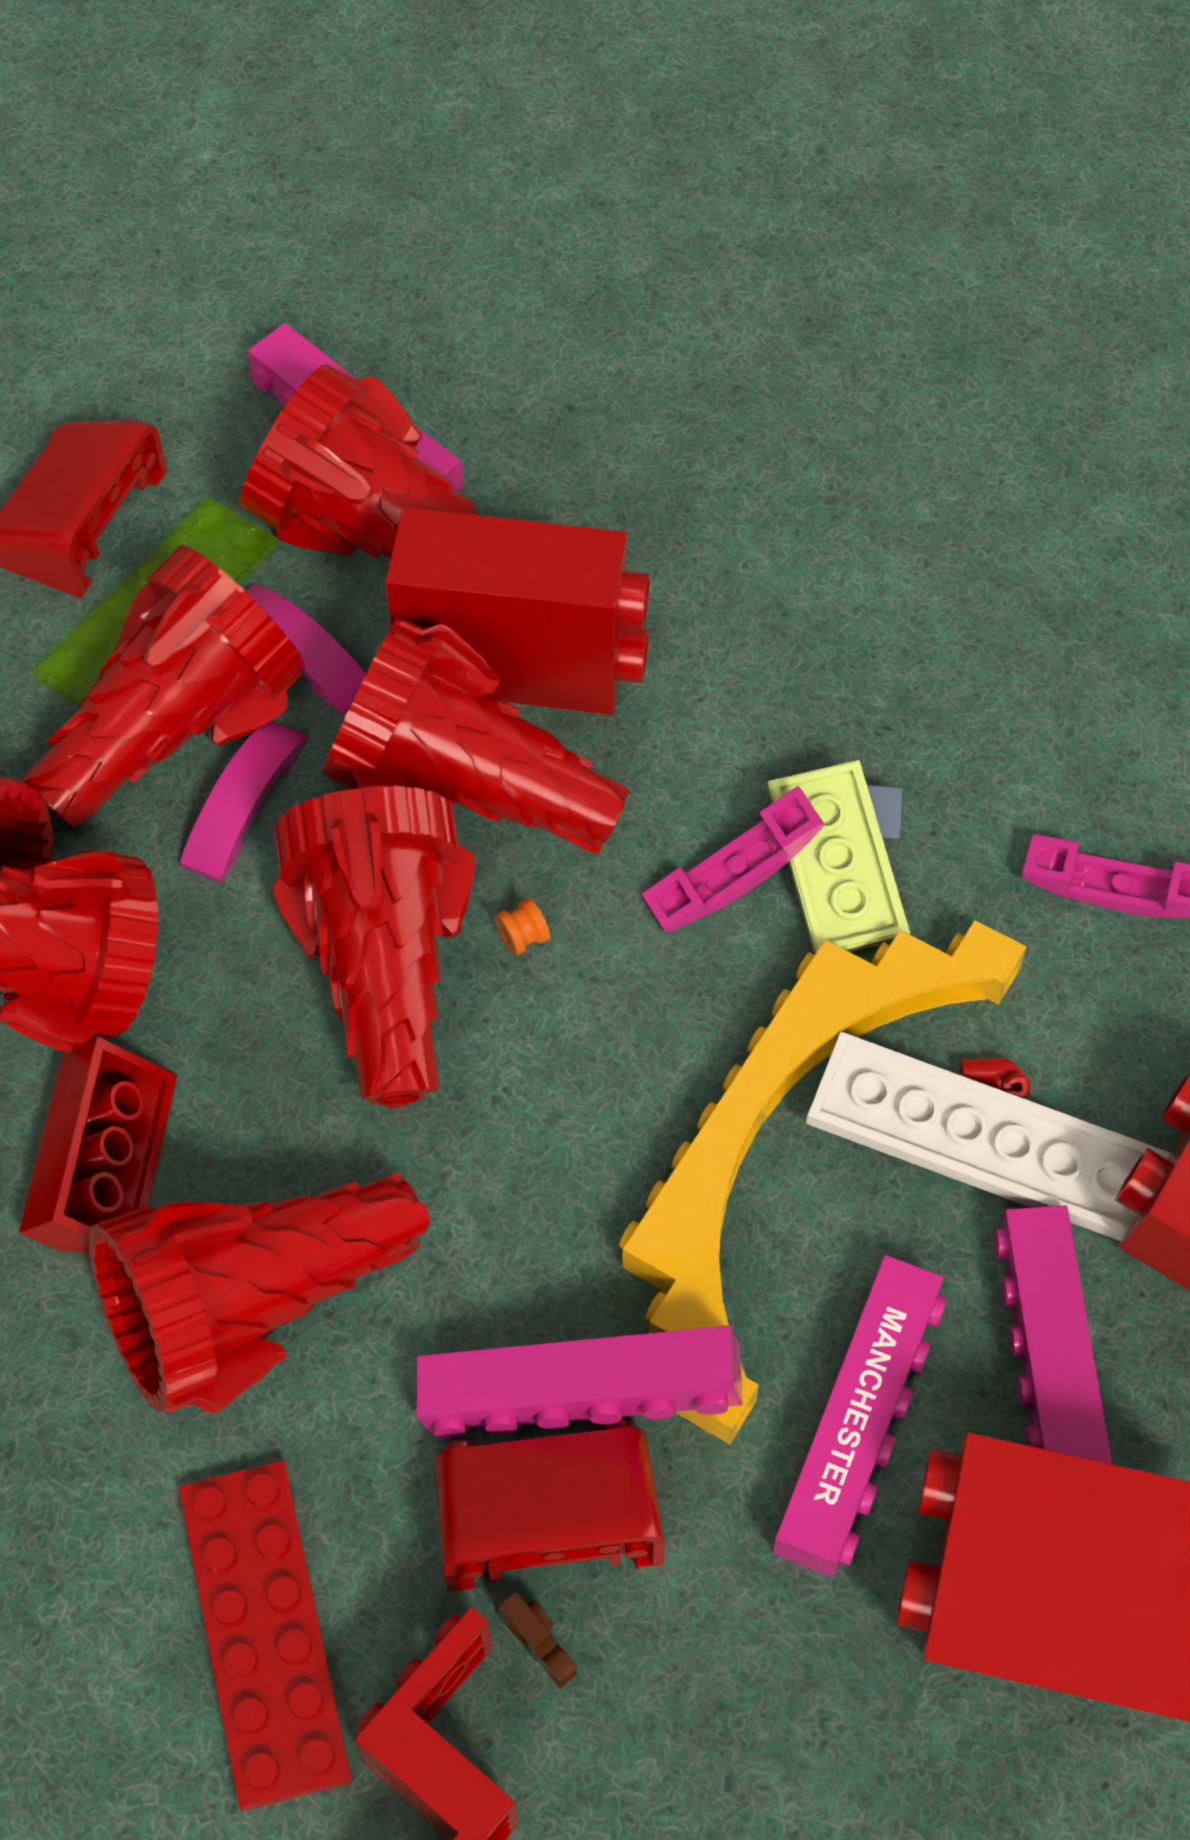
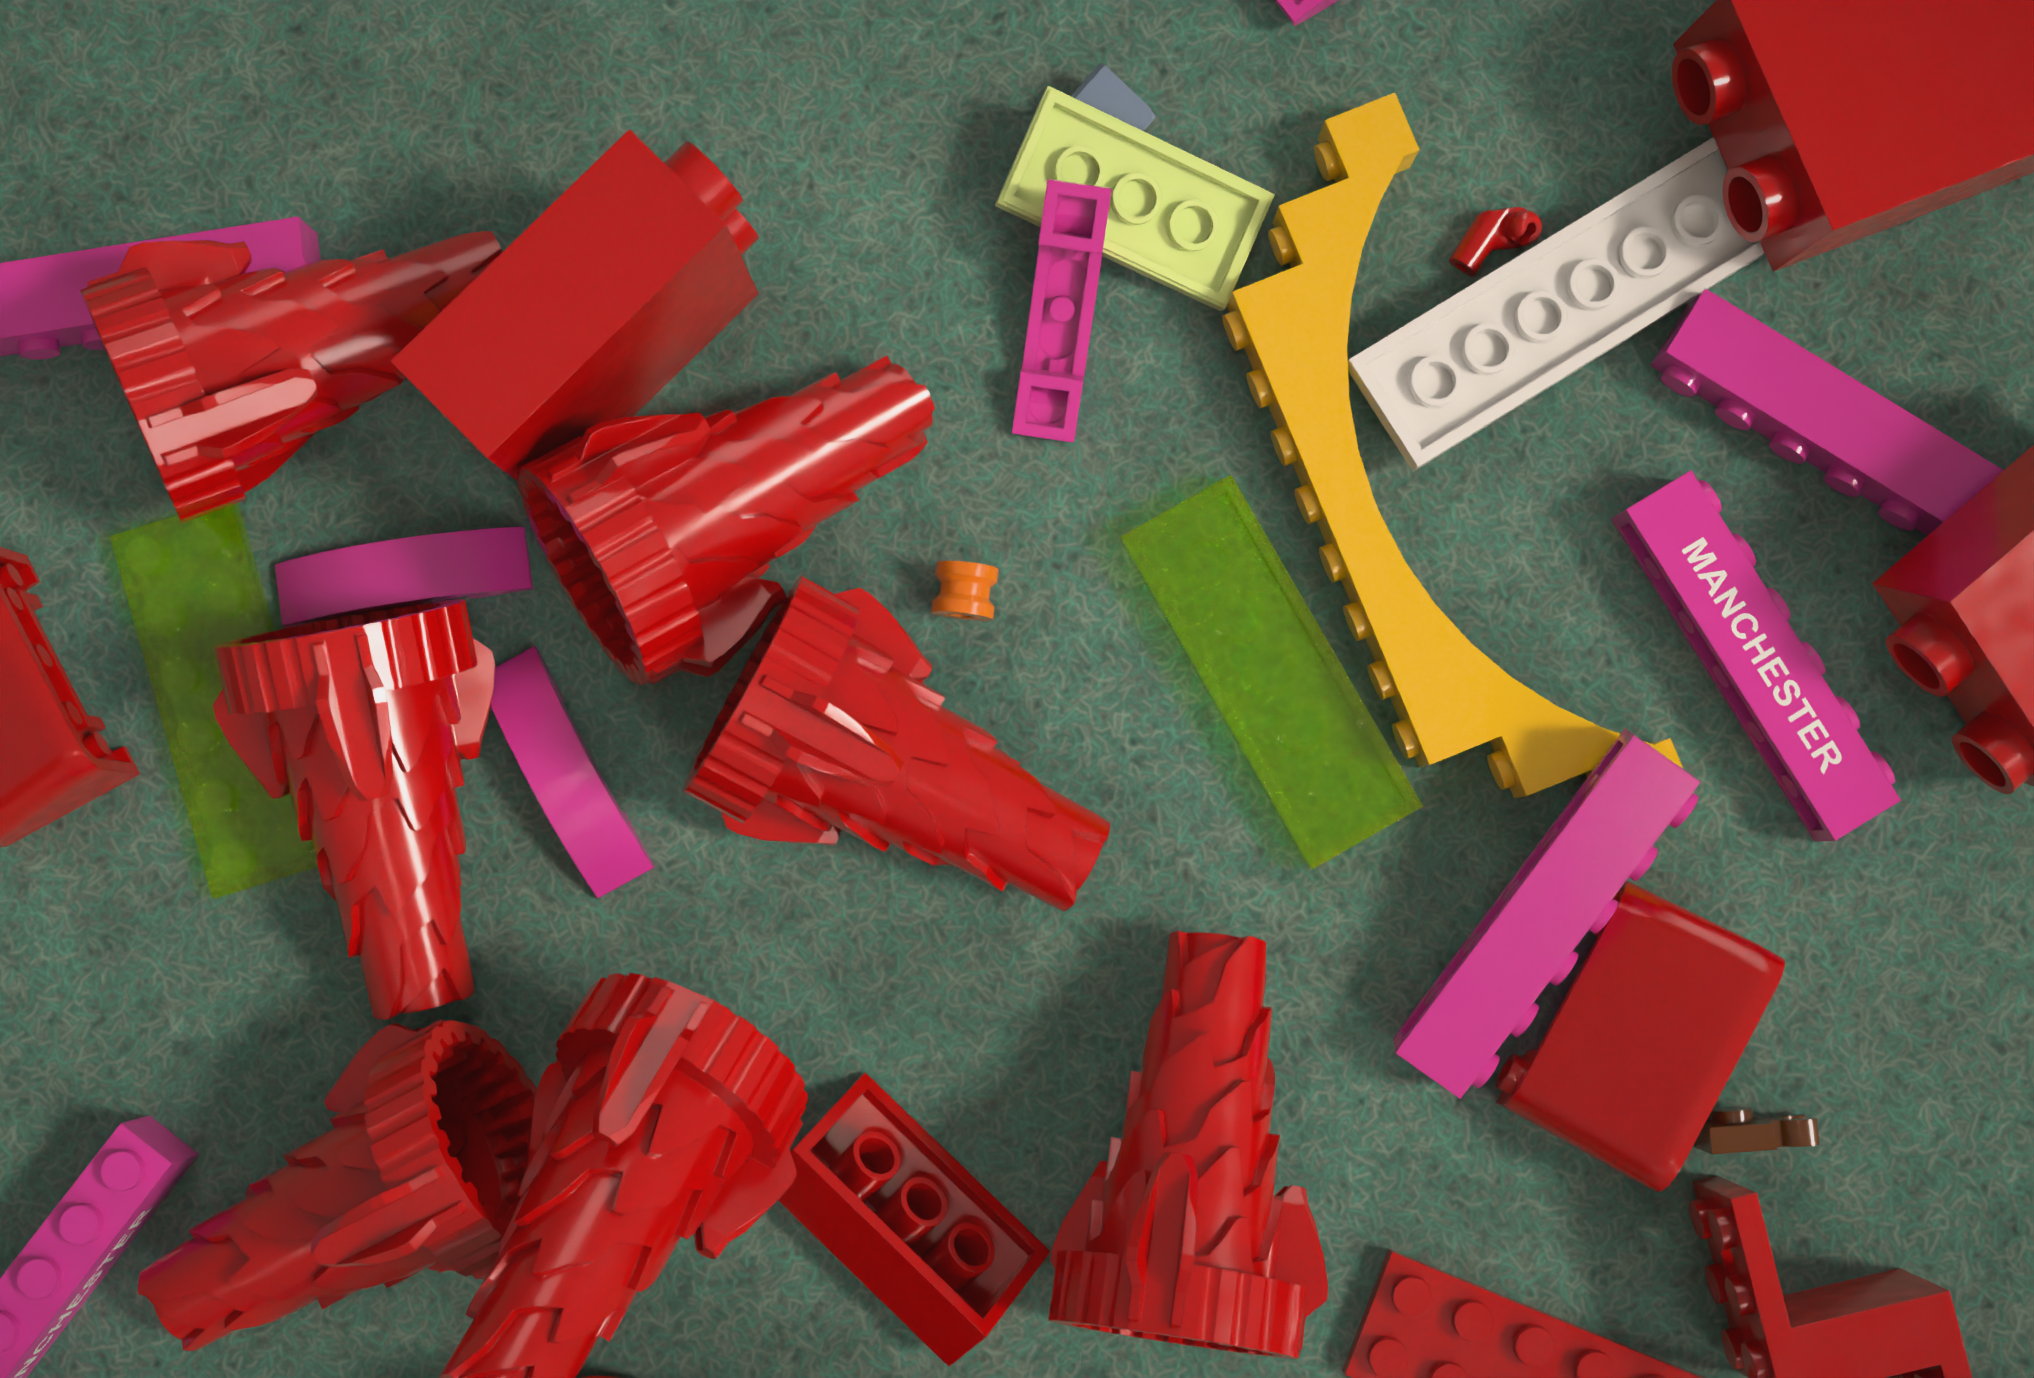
camera: 50 degrees left, 25 degrees up
(609, 1134) = (1270, 672): none -> clear neon green plate

